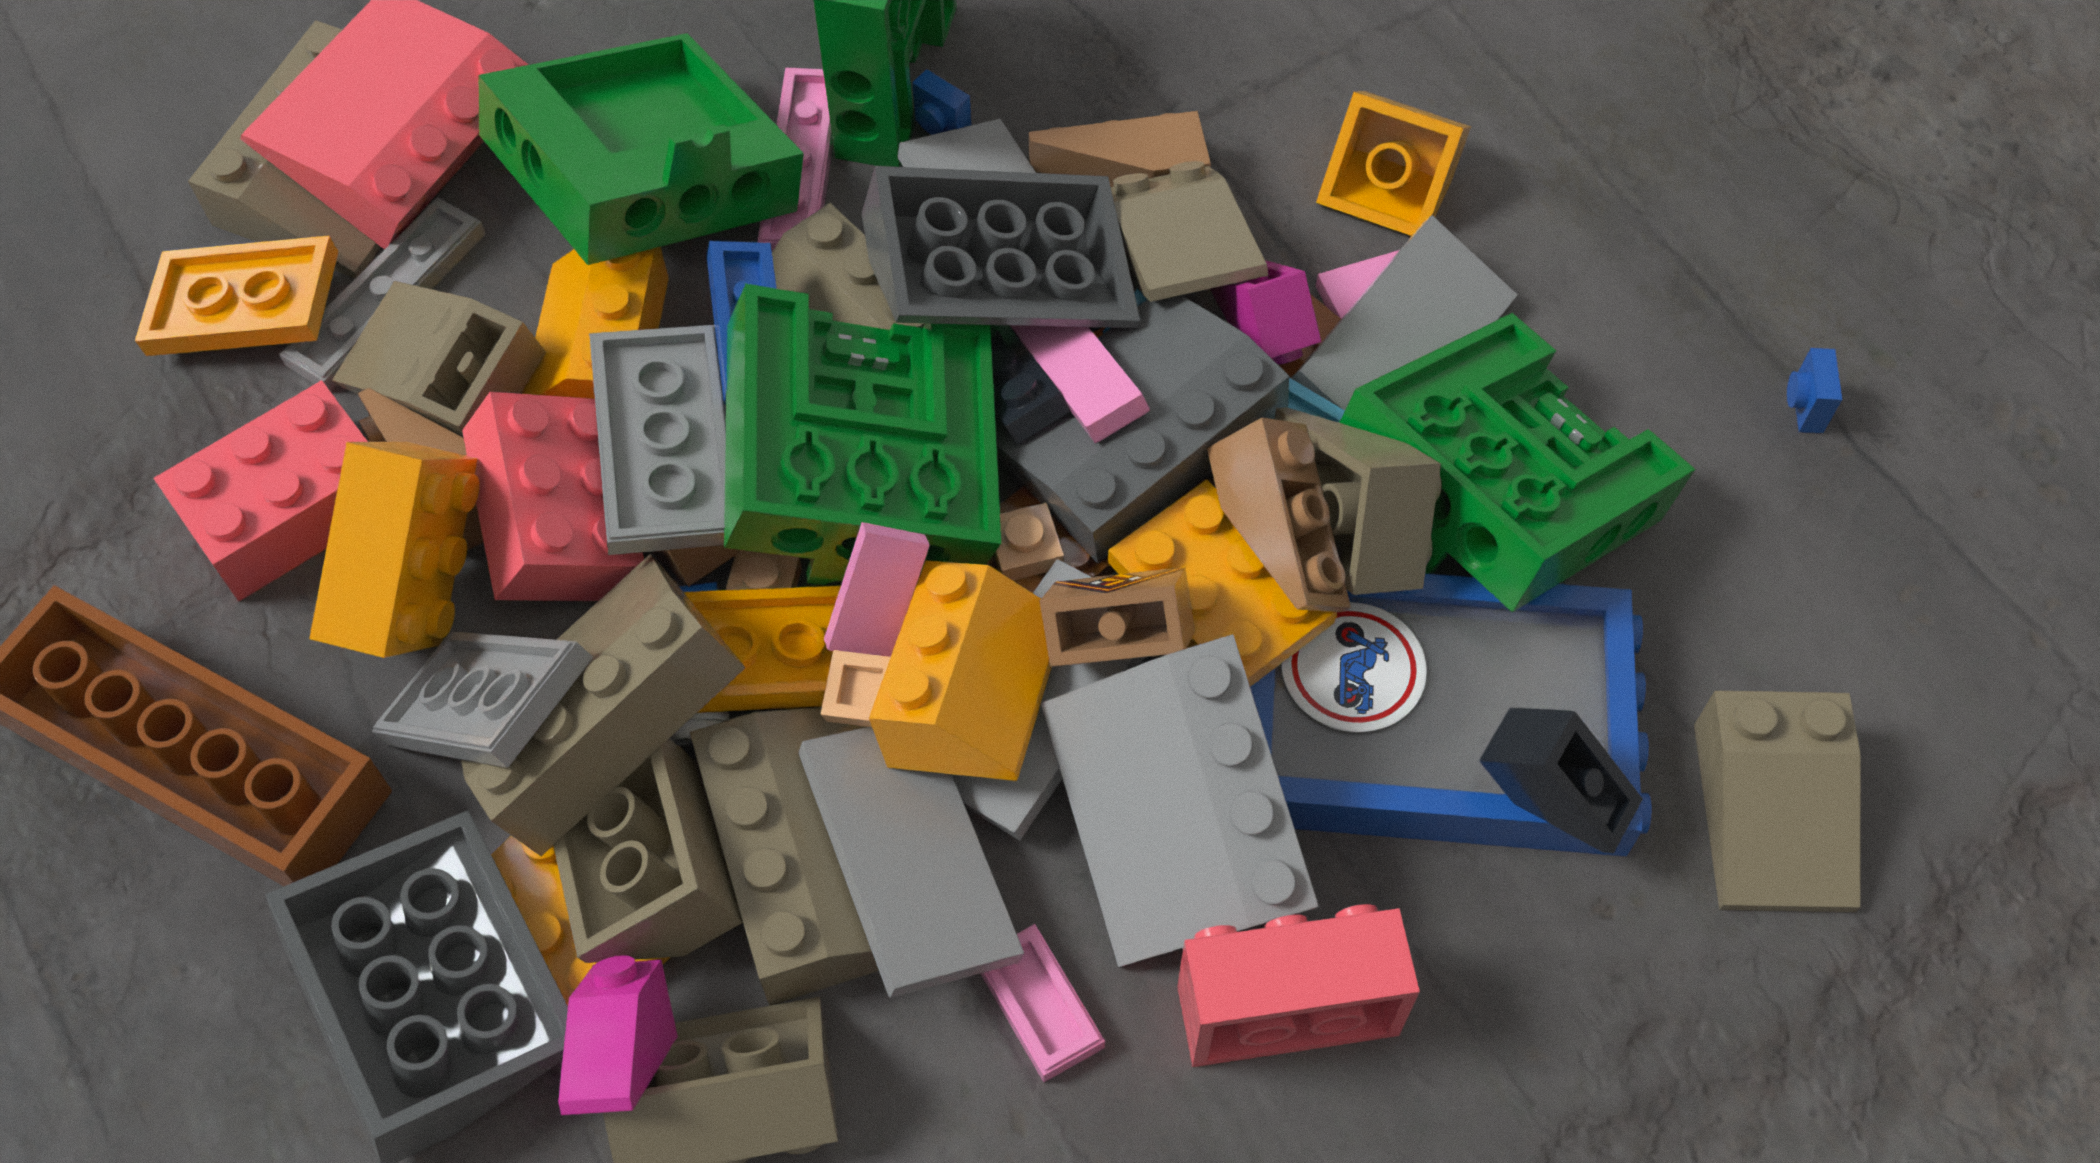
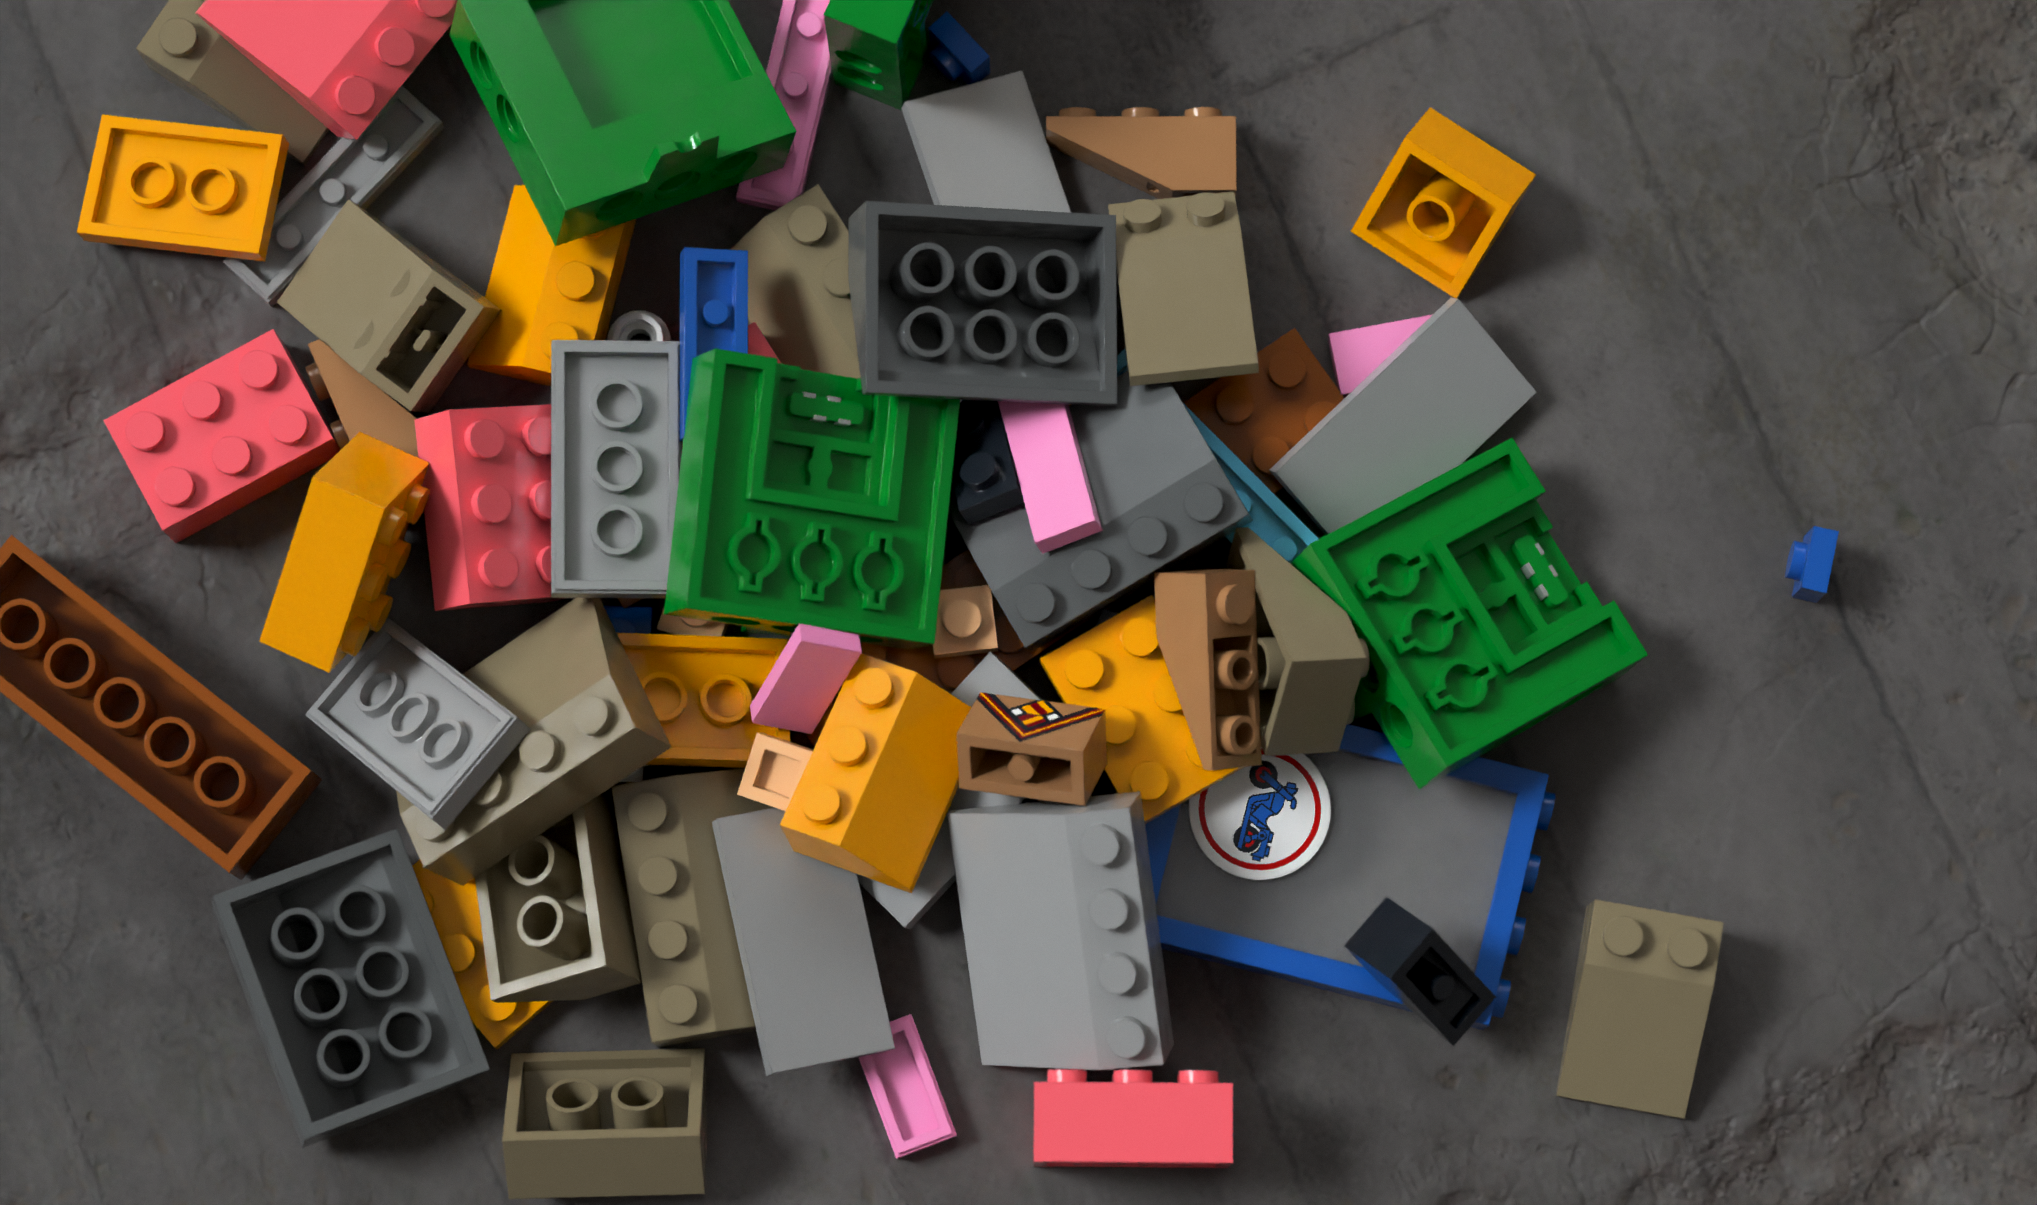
camera: 10 degrees right, 20 degrees up
(615, 1036) = (519, 1077): dark pink slope -> none
(1272, 311) = (1262, 404): dark pink slope -> none

